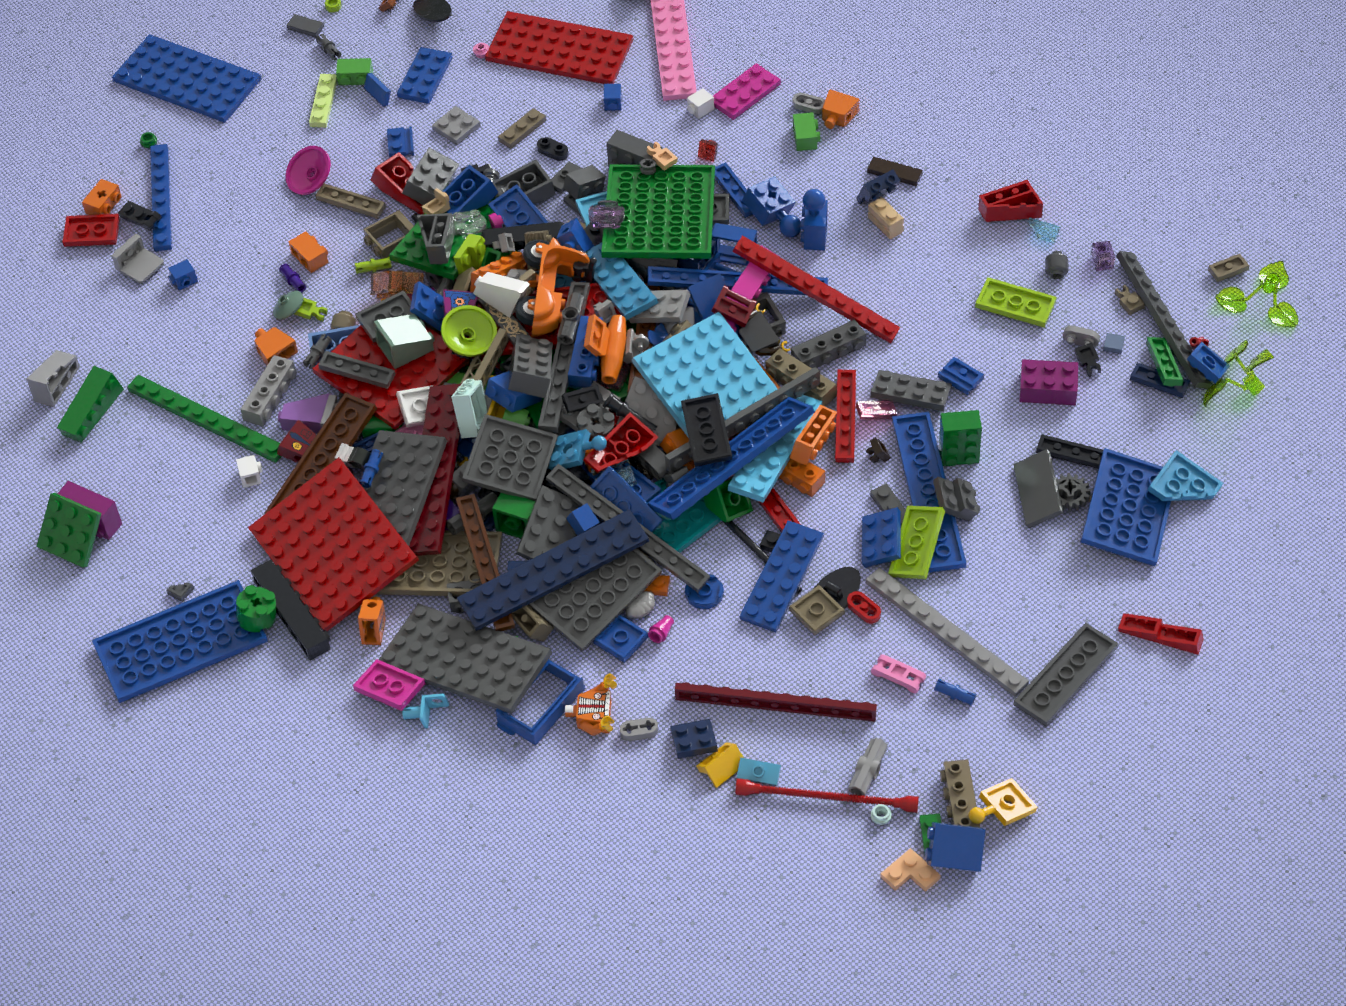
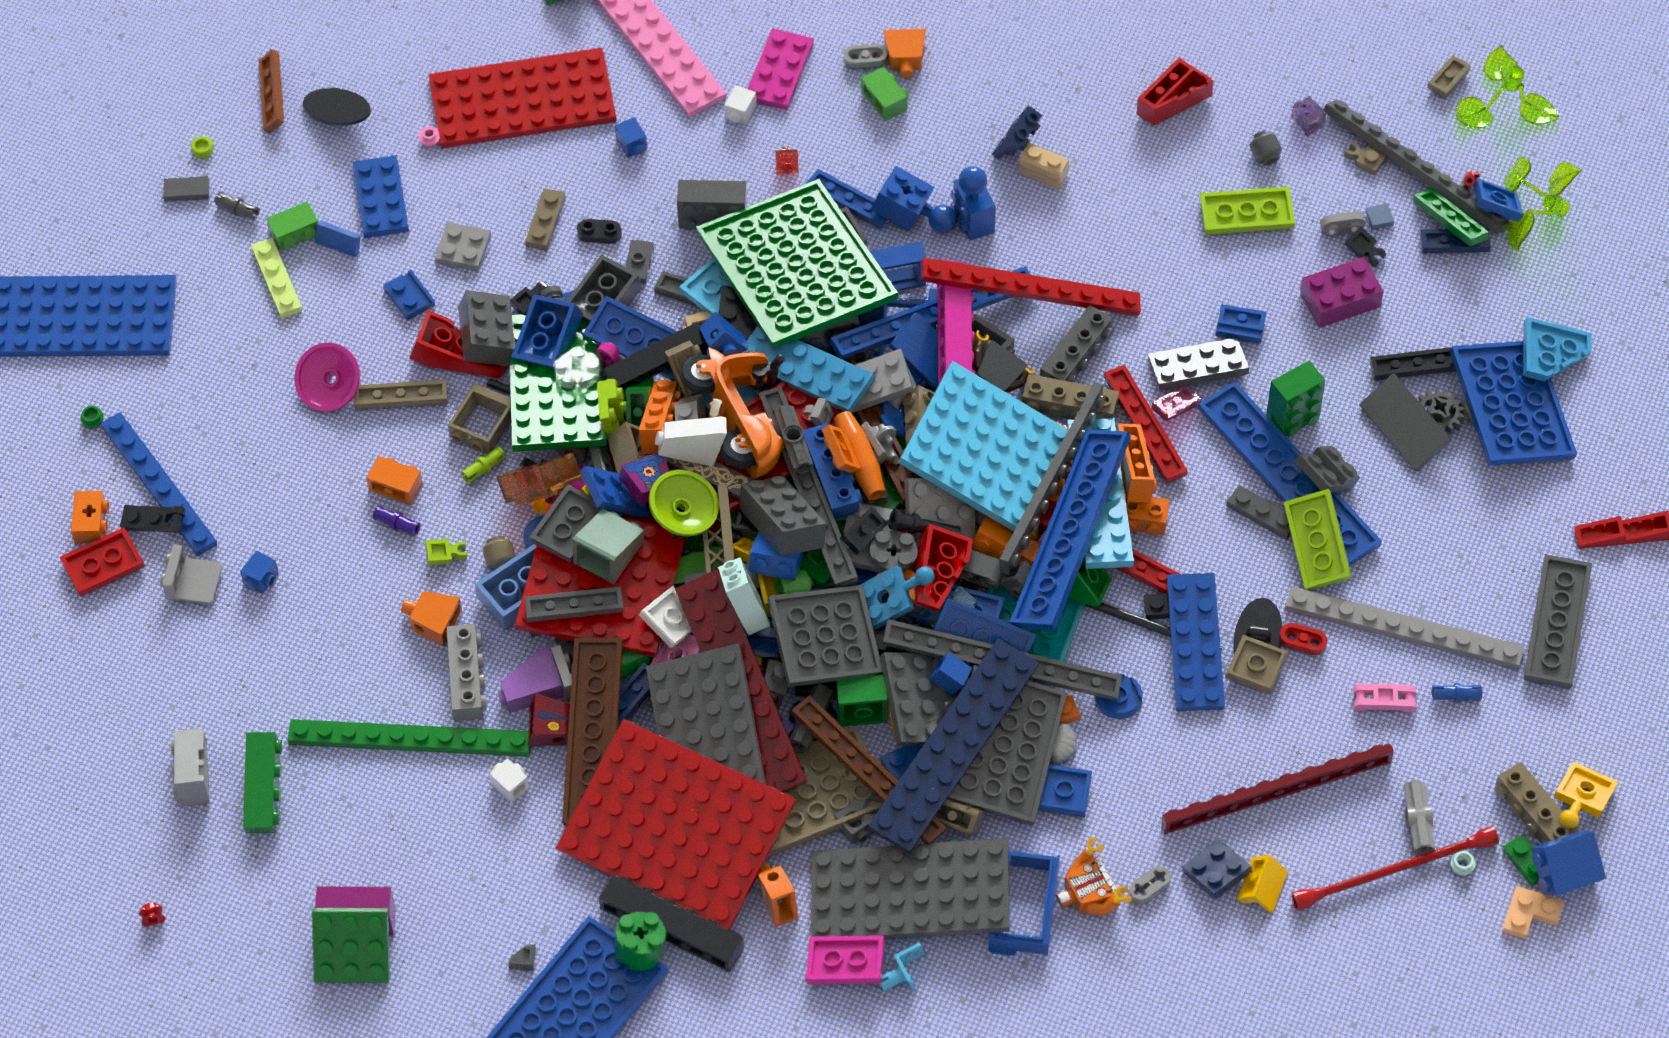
camera: 30 degrees left, 5 degrees up
(288, 305) = (415, 556): sand green dish -> none
(317, 351) = (504, 601): dark grey pin -> none
(353, 456) = (636, 710): leg -> none
(371, 468) = (670, 716): blue pin -> none
(438, 205) = (526, 360): tan bracket -> none
(438, 236) = (559, 401): dark grey wedge -> none
(505, 243) = (644, 376): light grey tile -> none
(584, 182) = (671, 259): dark grey brick -> none
(606, 214) = (751, 302): clear purple plate -> none
(647, 166) = (746, 207): dark grey bush -> none
(660, 630) = (1102, 762): dark pink cone -> none
(662, 157) = (757, 194): light nougat plate -> none
(706, 430) = (1029, 508): black tile -> none
(732, 310) = (963, 352): dark red plate -> none
(758, 771) = (1308, 874): medium azure plate -> none
(879, 450) = (1208, 449): dark brown tile -> none
(881, 537) = (1274, 550): blue plate -> none
(905, 173) = (1013, 102): dark brown tile -> none
(1044, 230) = (1224, 110): clear light blue tile -> none

